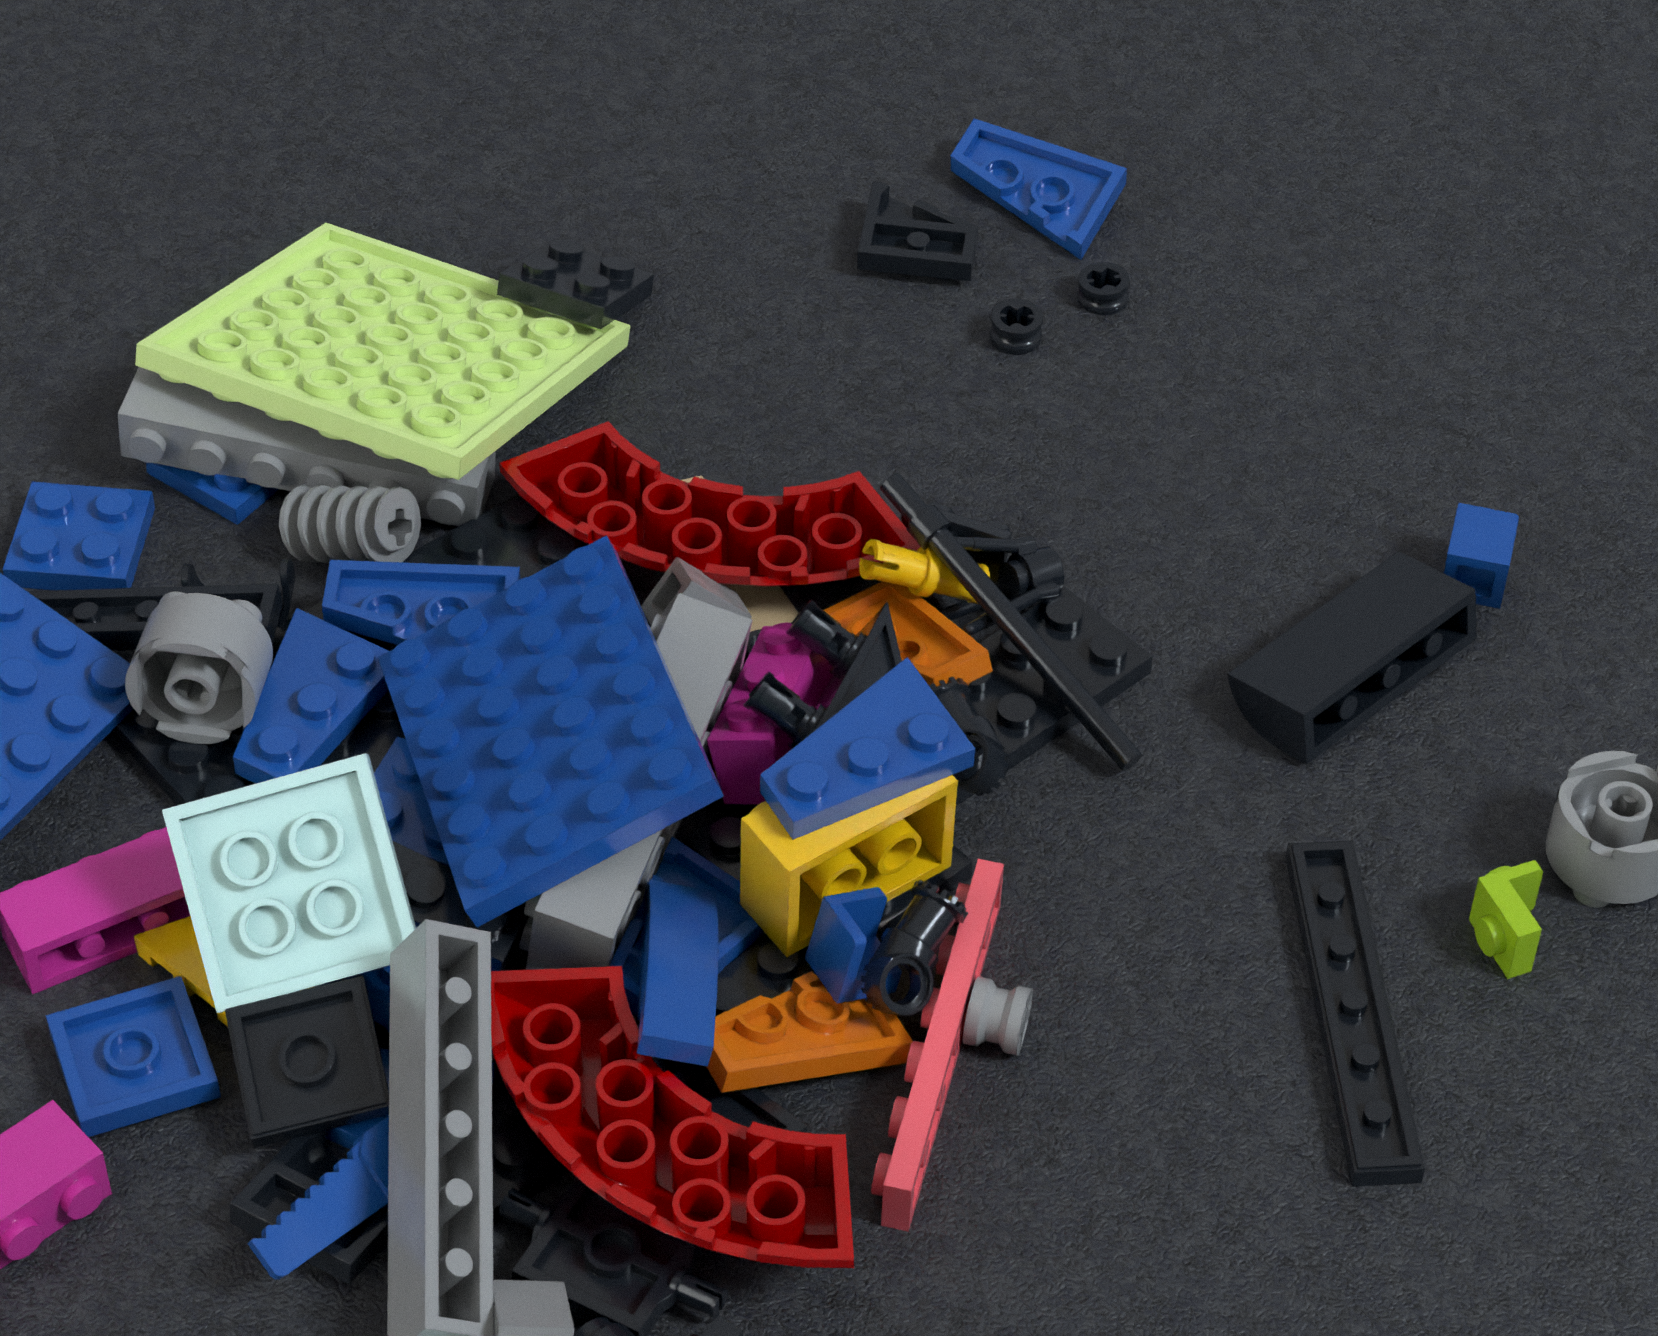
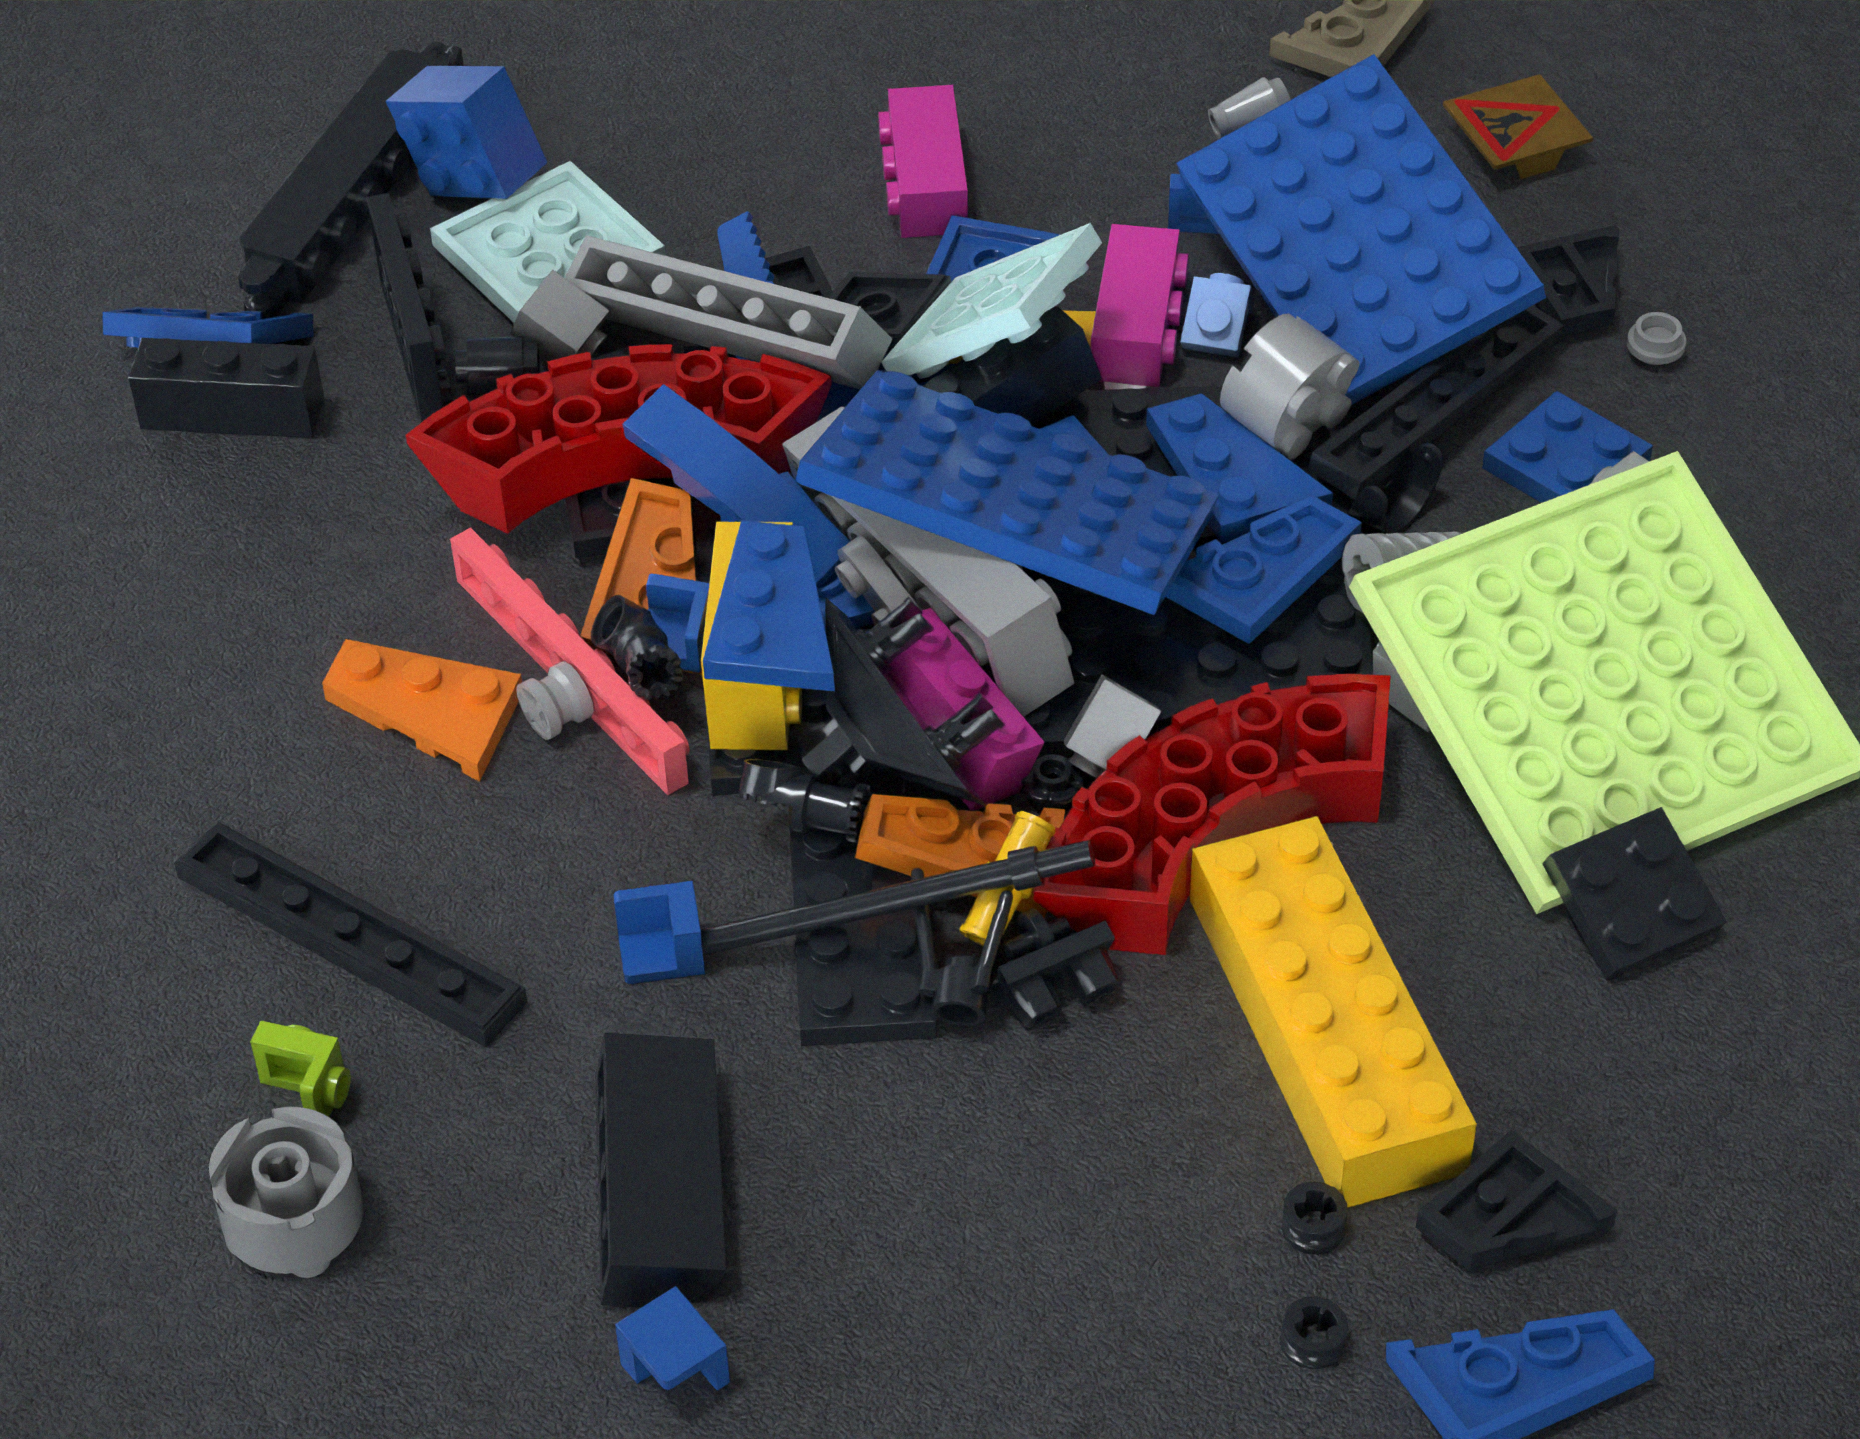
camera: 130 degrees right, 0 degrees up
(64, 836) = (1217, 315): none -> light blue bracket
(692, 835) = (867, 575): none -> light grey plate
(846, 374) = (1331, 1013): none -> yellow brick
(1074, 1133) = (431, 699): none -> orange wing
(1147, 794) = (659, 932): none -> blue panel

